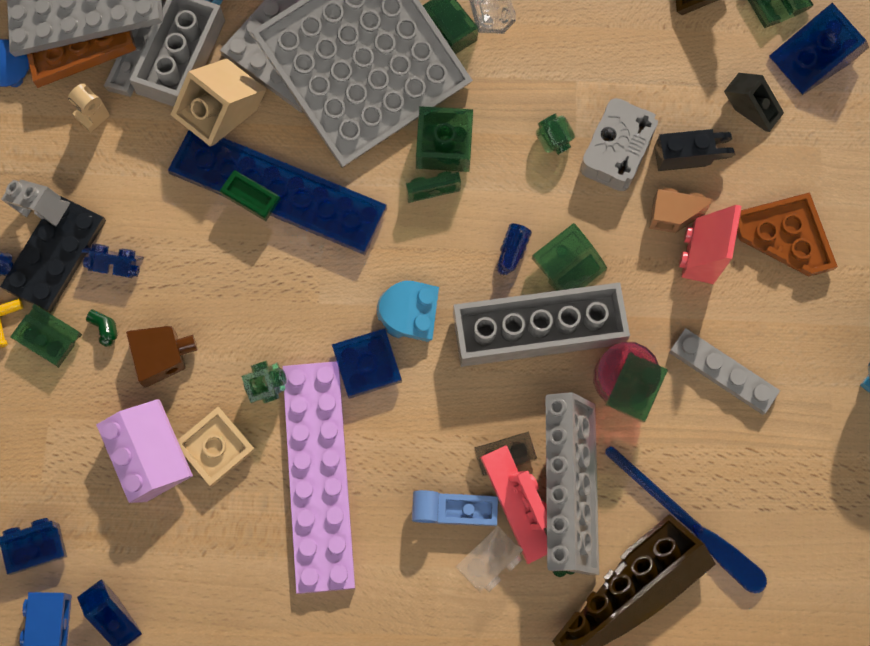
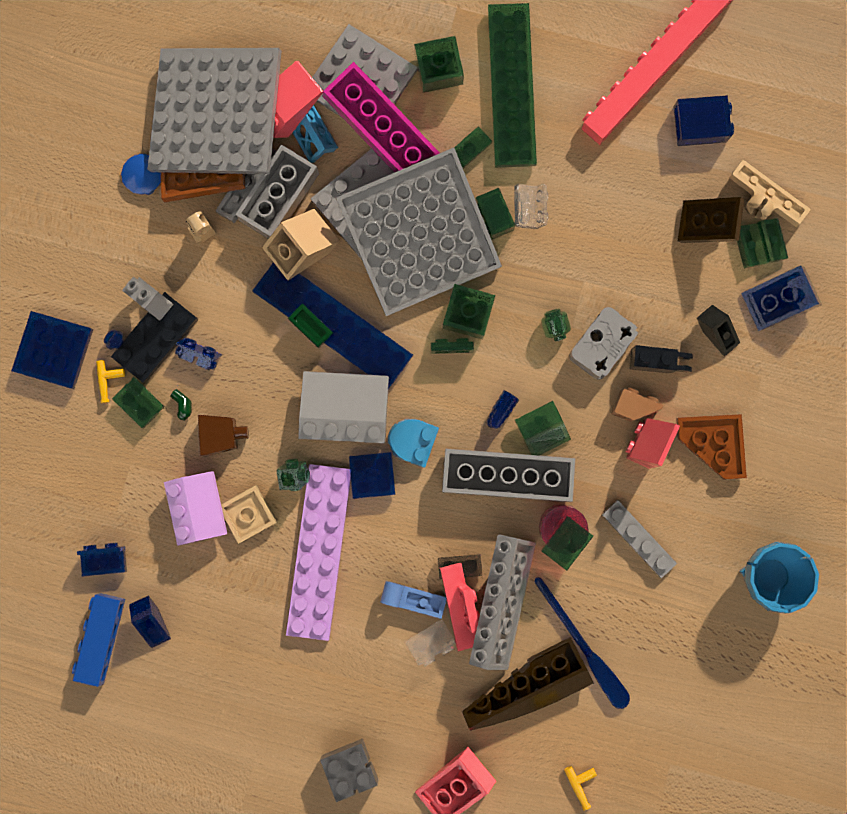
camera: 15 degrees right, 10 degrees up
(312, 284) = (343, 407): none -> light grey slope

